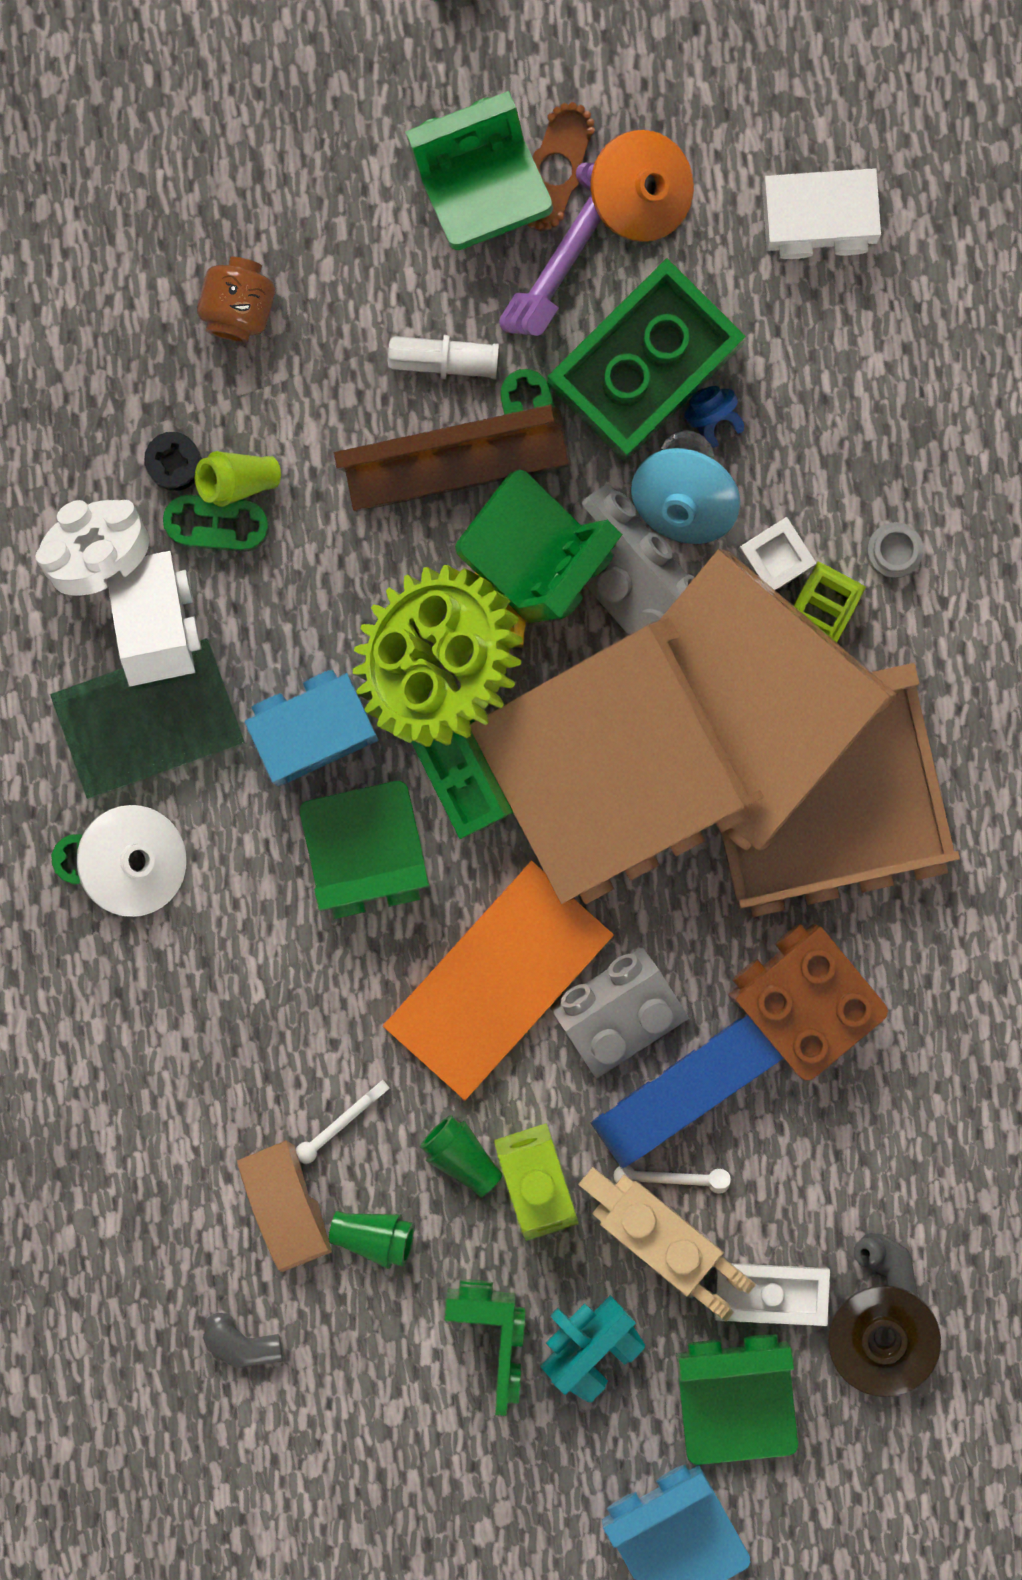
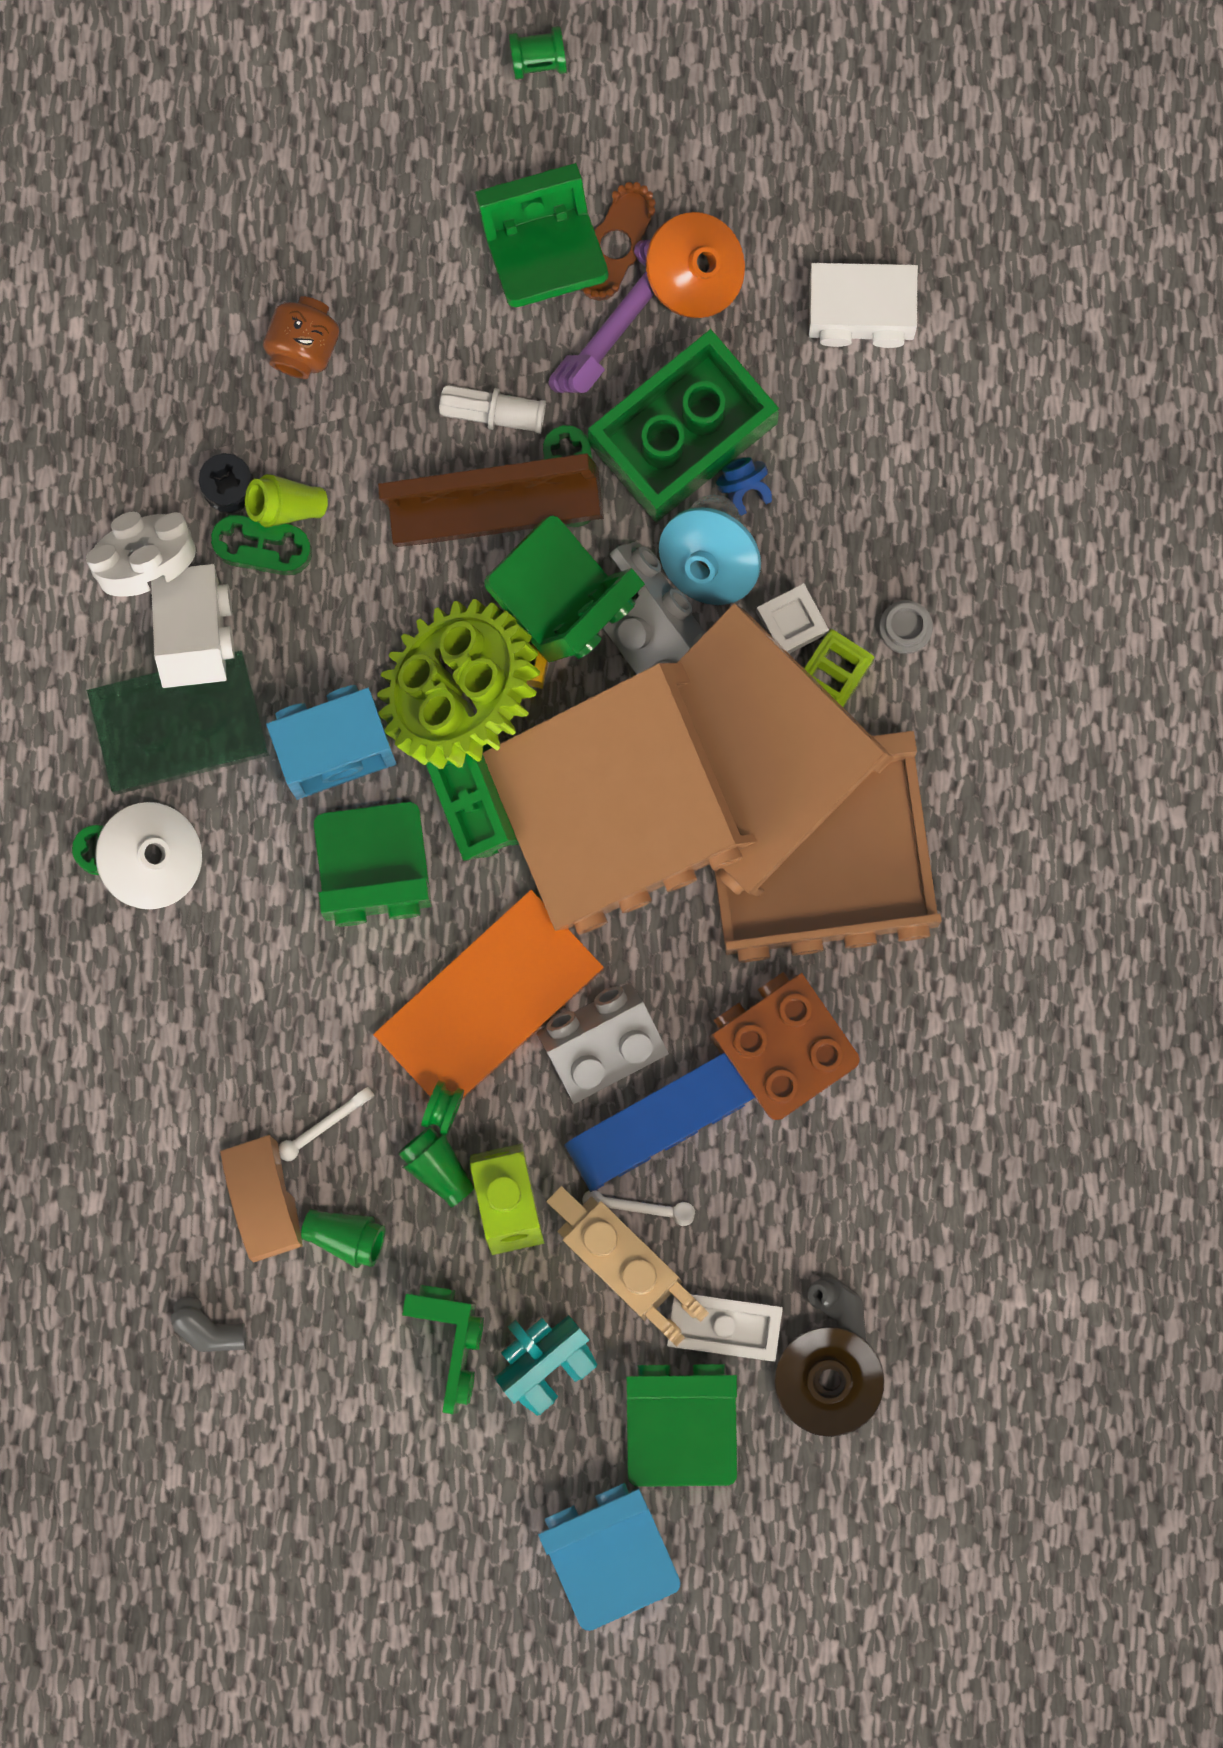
camera: 10 degrees right, 5 degrees down
(462, 1097) = (442, 1107): none -> green bush

